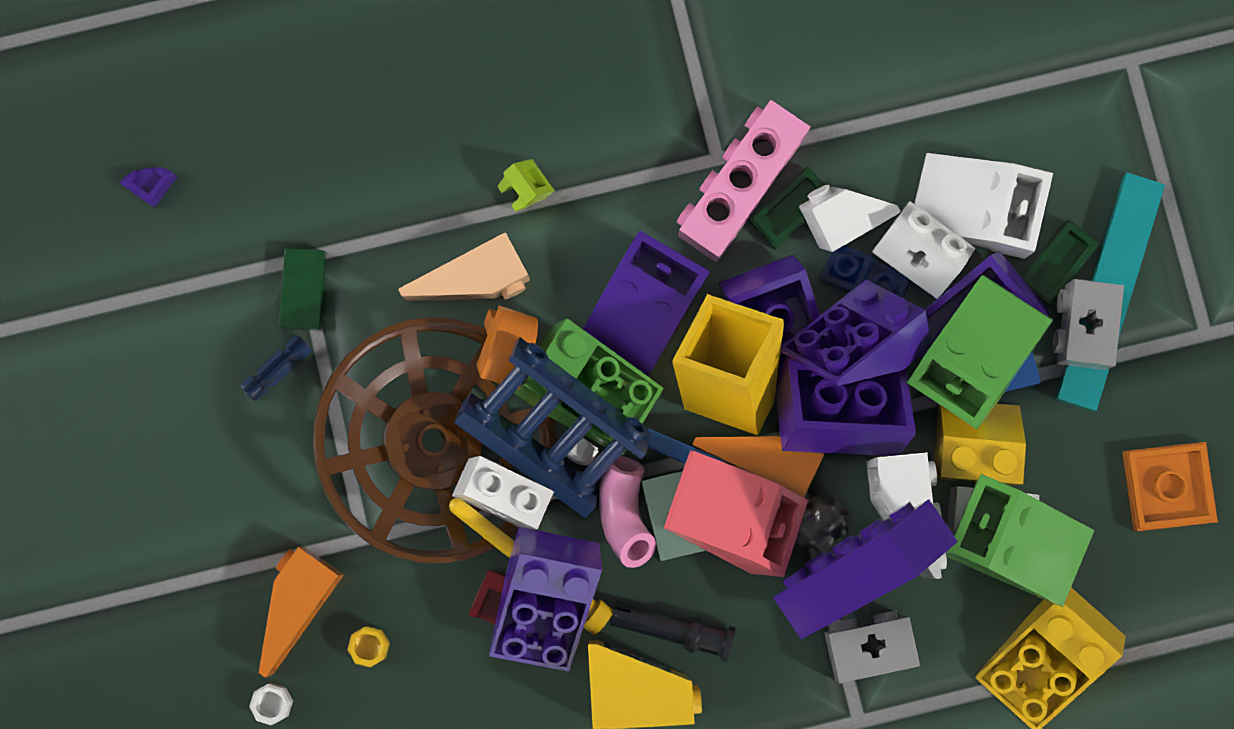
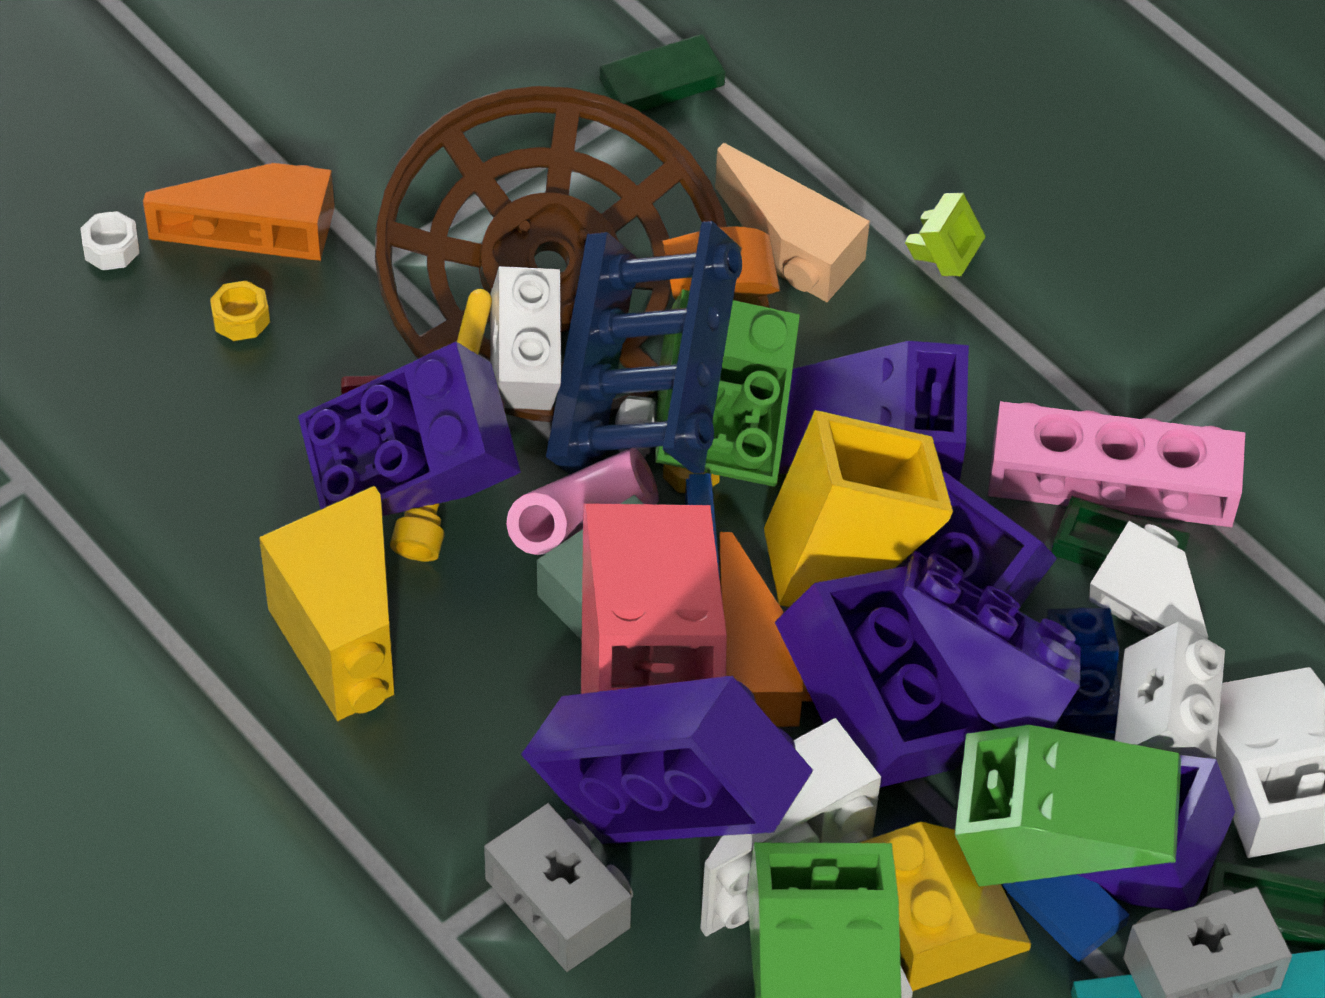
camera: 60 degrees right, 30 degrees down
(276, 368) = (510, 75): dark blue axle -> none
(692, 633) = (454, 659): black pin -> none

